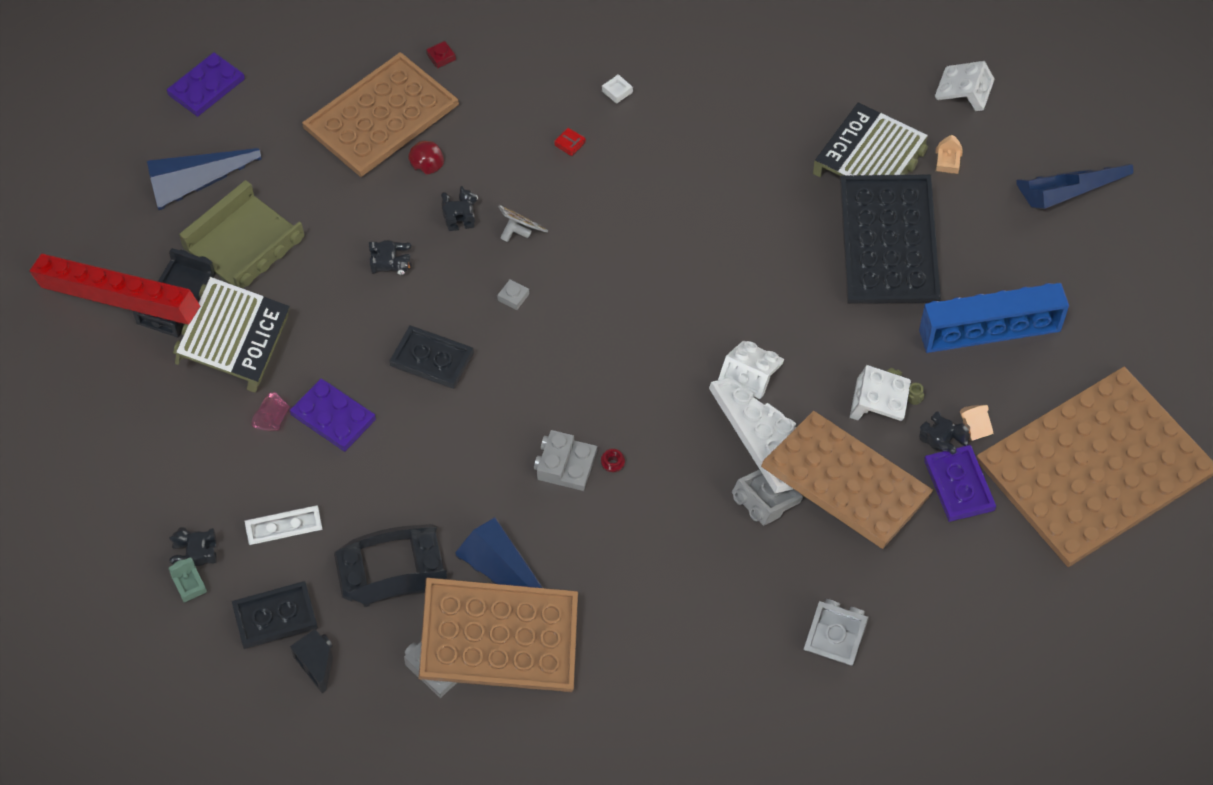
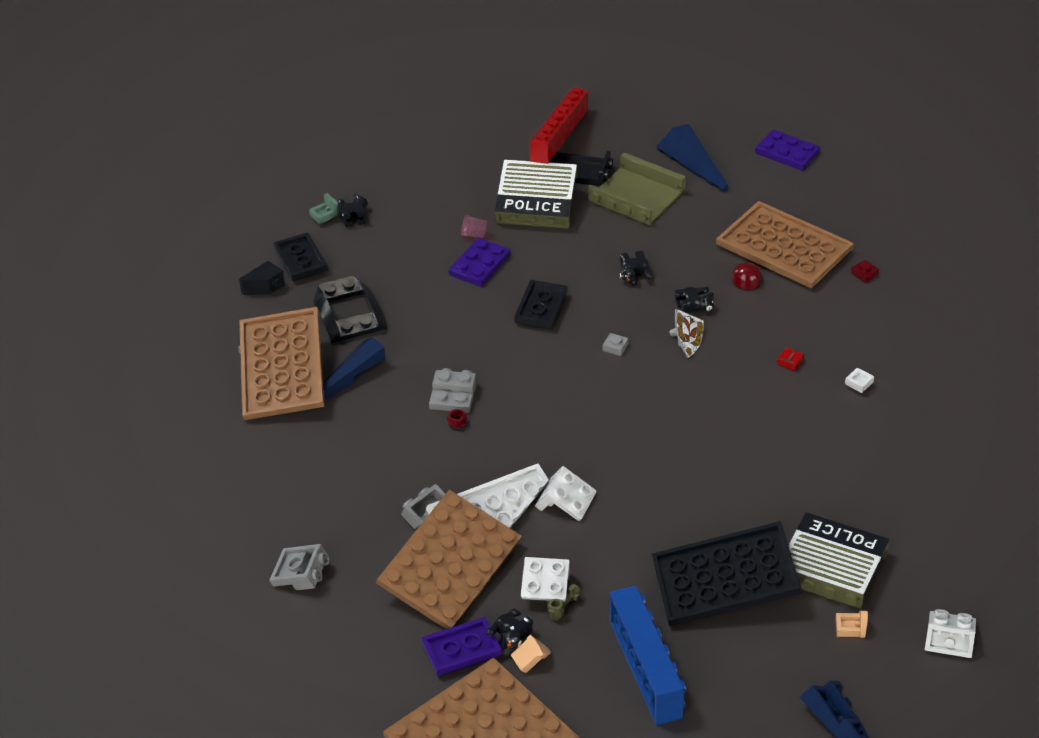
camera: 85 degrees right, 15 degrees down
(283, 525) = (379, 251): white slope -> none

